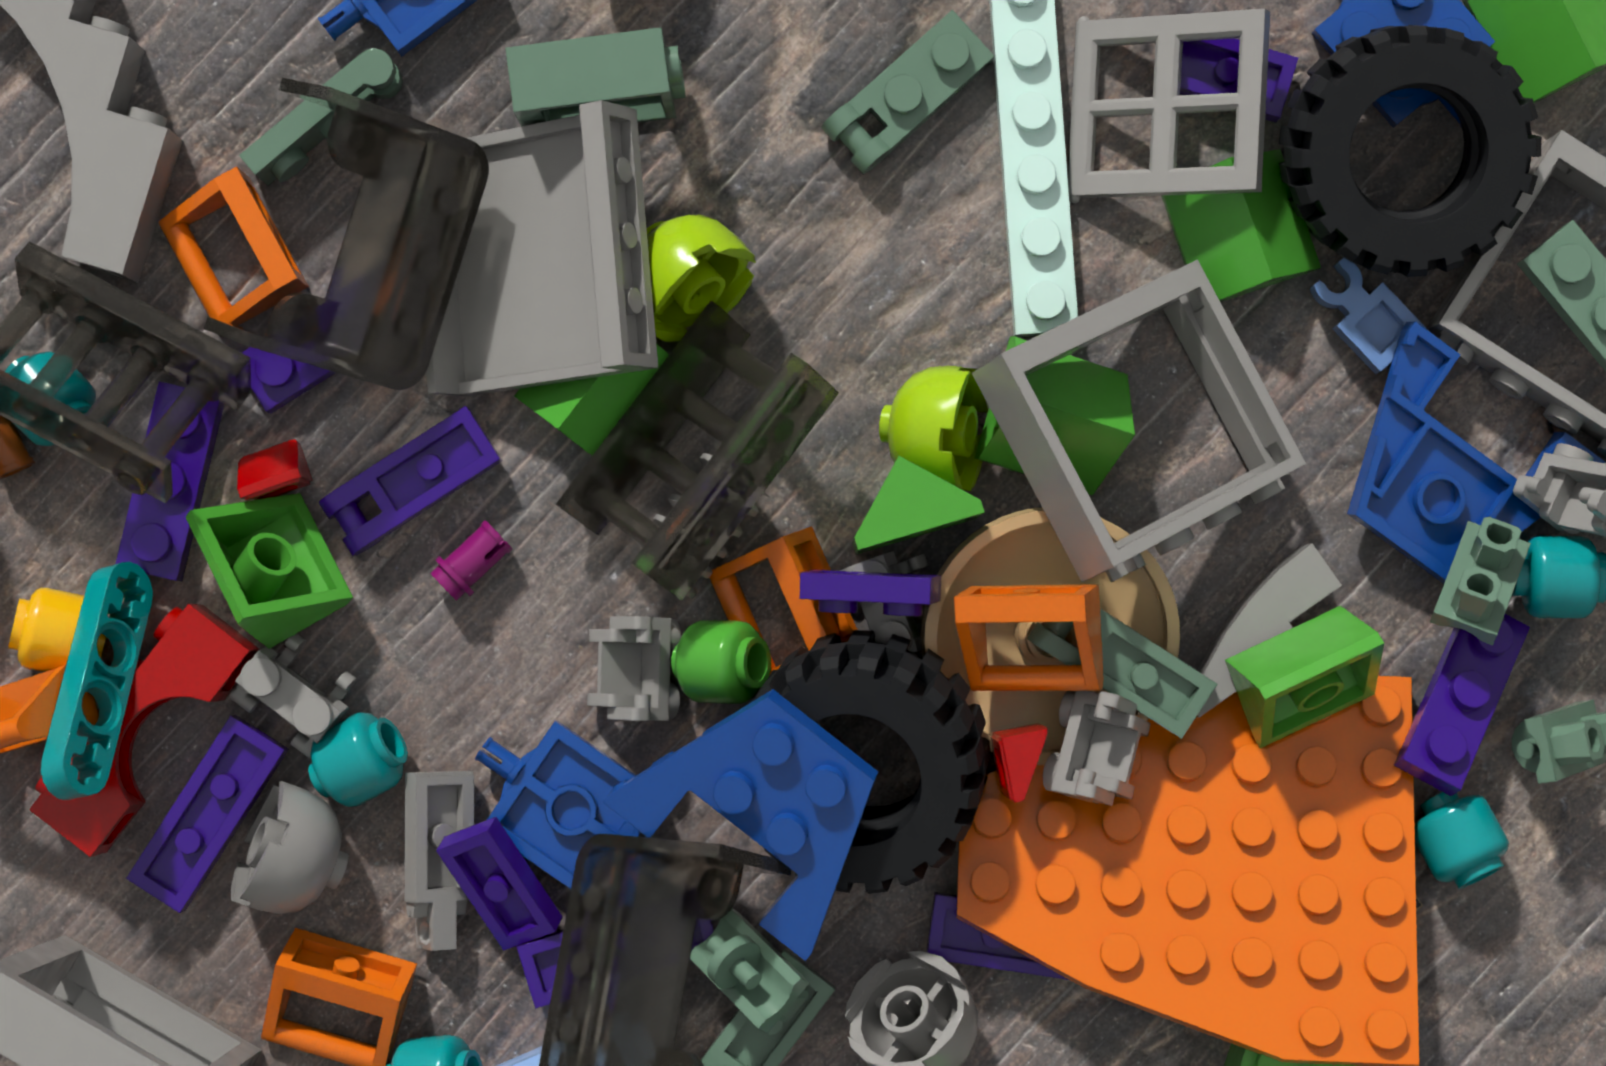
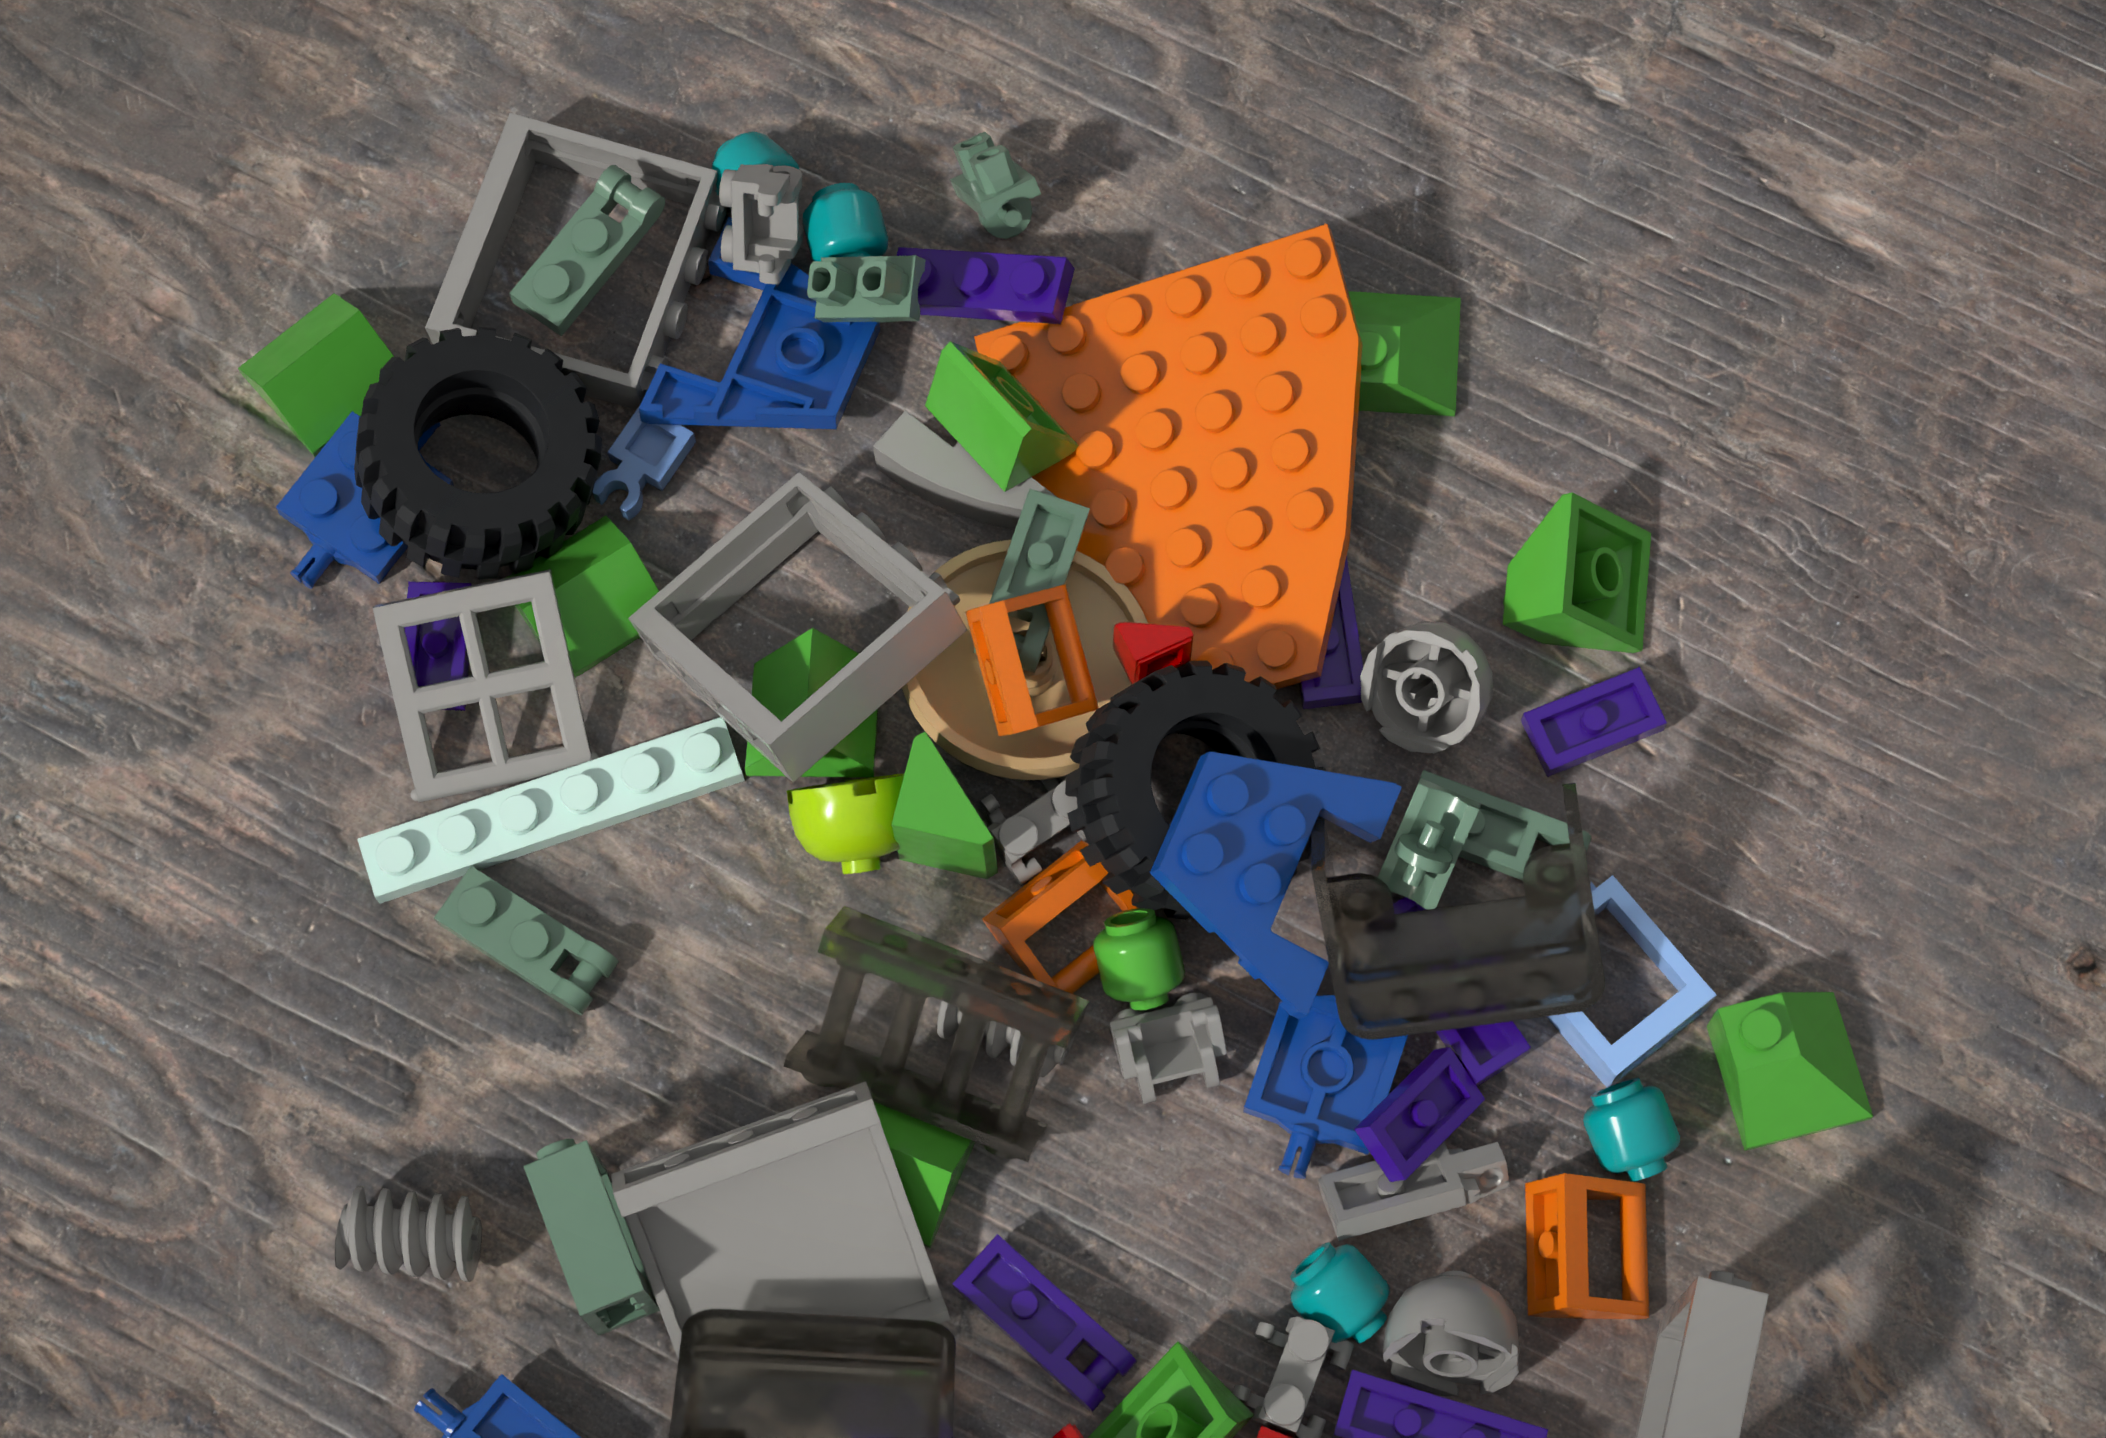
camera: 105 degrees left, 15 degrees down
(470, 561) = (1108, 1239): magenta pin -> none
(693, 264) = (750, 1085): lime cylinder -> none
(842, 590) = (1023, 794): dark purple plate -> none
(1096, 747) = (1120, 580): light grey piece -> none
(1460, 839) = (1111, 254): teal head -> none

